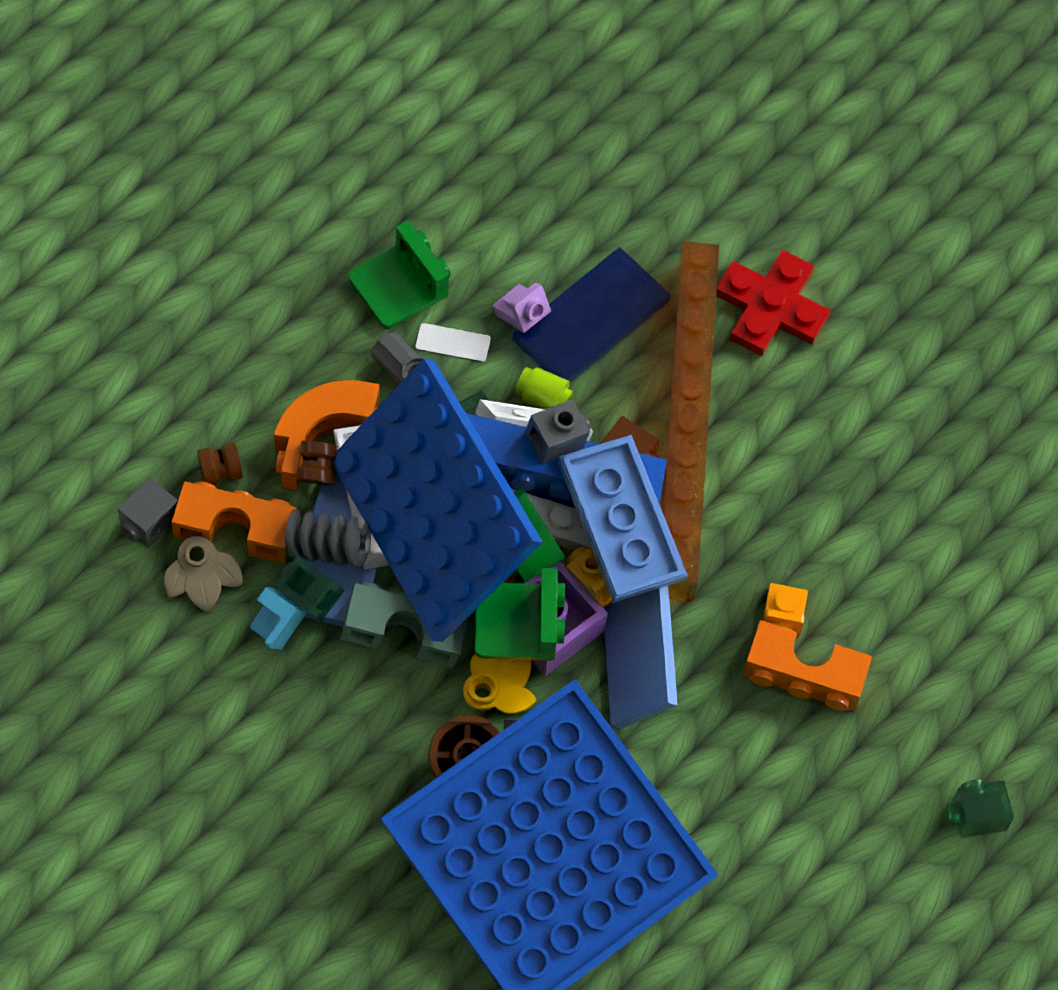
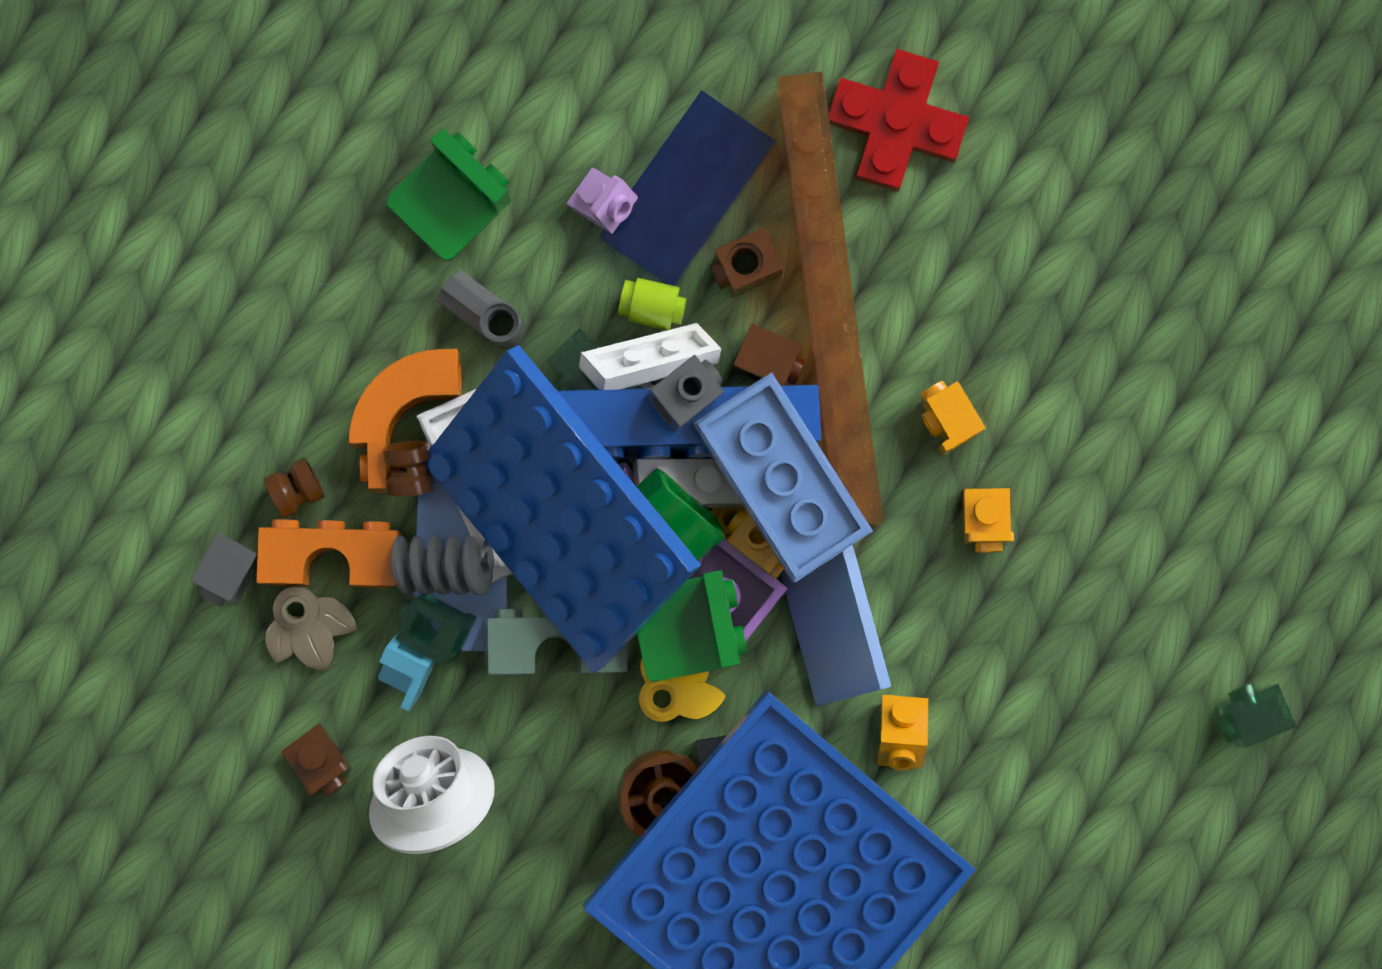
camera: 10 degrees left, 20 degrees up
(183, 678) = (318, 762): none -> reddish brown bracket
(270, 710) = (429, 795): none -> white piece
(453, 342) = (530, 258): white sticker -> none
(633, 363) = (755, 245): none -> reddish brown brick
(678, 761) = (903, 732): none -> light orange bracket
(770, 524) = (950, 415): none -> light orange brick
(775, 664) = (986, 587): orange arch -> none

